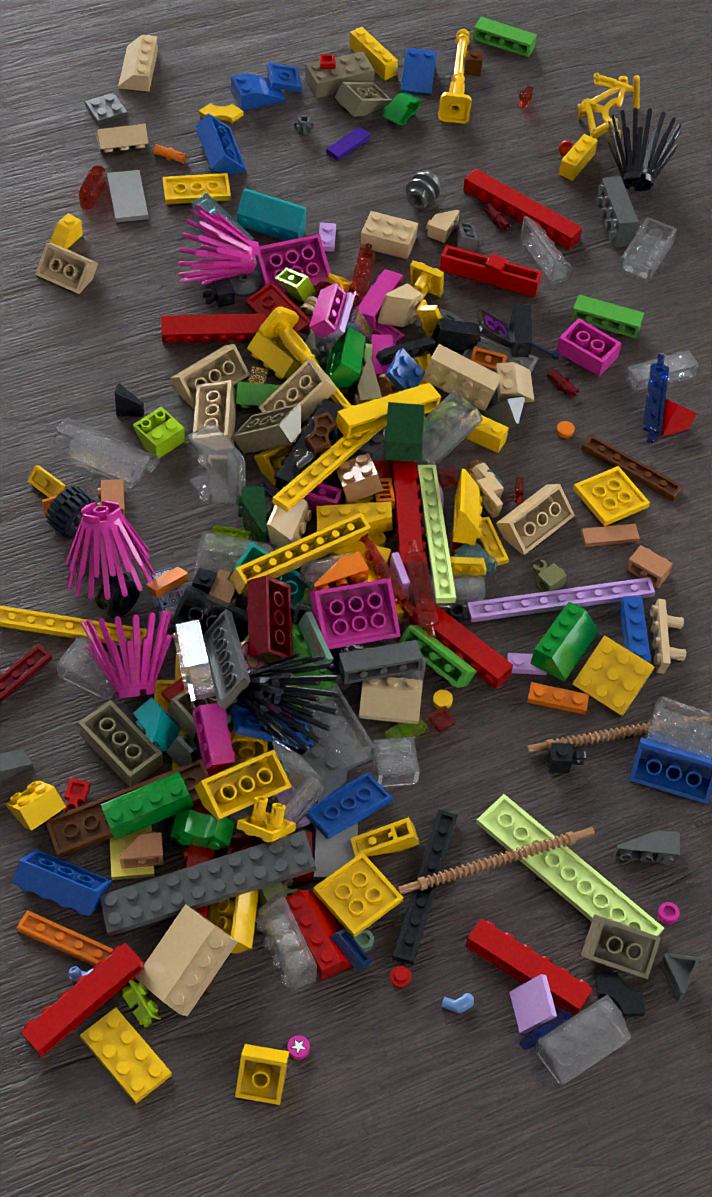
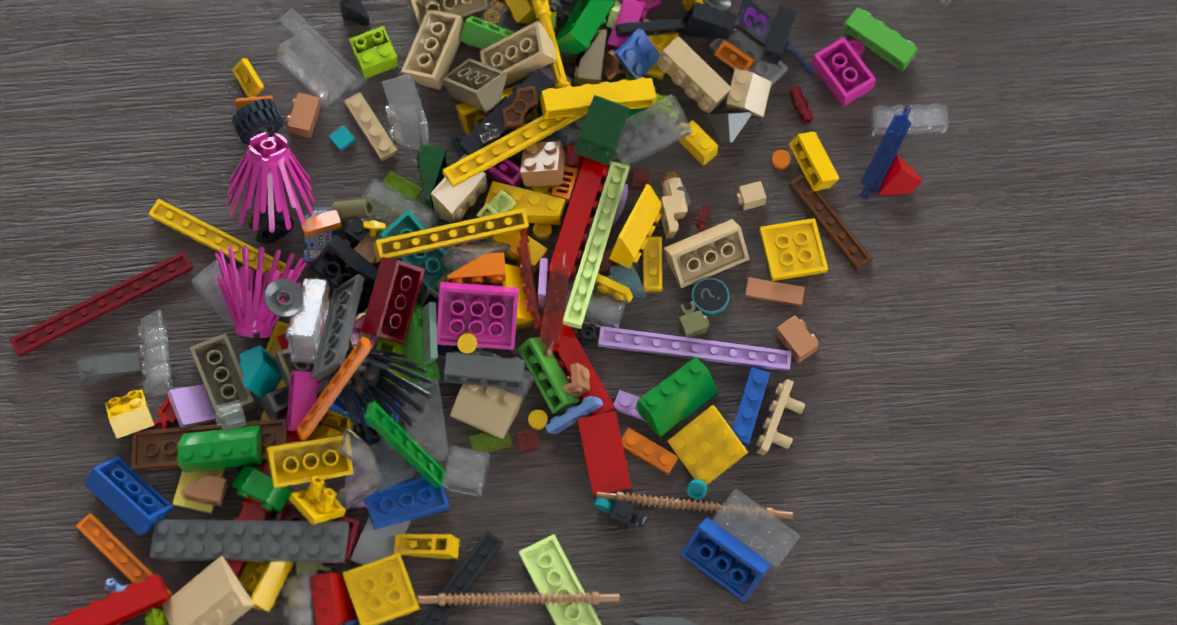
camera: 20 degrees right, 15 degrees up
(45, 742) = (156, 355): none -> clear slope
(98, 778) = (192, 405): none -> lavender tile
(145, 771) = (230, 415): none -> clear brick
(155, 511) = (342, 138): none -> teal tile
(166, 639) = (283, 289): none -> dark grey dish
(179, 495) = (370, 126): none -> tan plate
(191, 563) = (354, 208): none -> olive brick
(221, 571) = (374, 227): none -> yellow plant
(248, 705) = (334, 388): none -> orange tile
(333, 516) = (501, 203): none -> yellowish green slope
(335, 742) = (404, 444): none -> green plate
(355, 639) = (467, 343): none -> yellow tile
(473, 651) = (580, 380): none -> nougat bracket
(478, 681) = (560, 423): none -> medium blue plate
(519, 708) = (604, 453): none -> red tile
(539, 755) = (604, 505): none -> teal tile
(554, 462) = (751, 195): none -> tan brick
(554, 551) = (710, 296): none -> black tile
(596, 421) = (814, 161): none -> yellow brick
(619, 717) = (697, 489): none -> teal tile

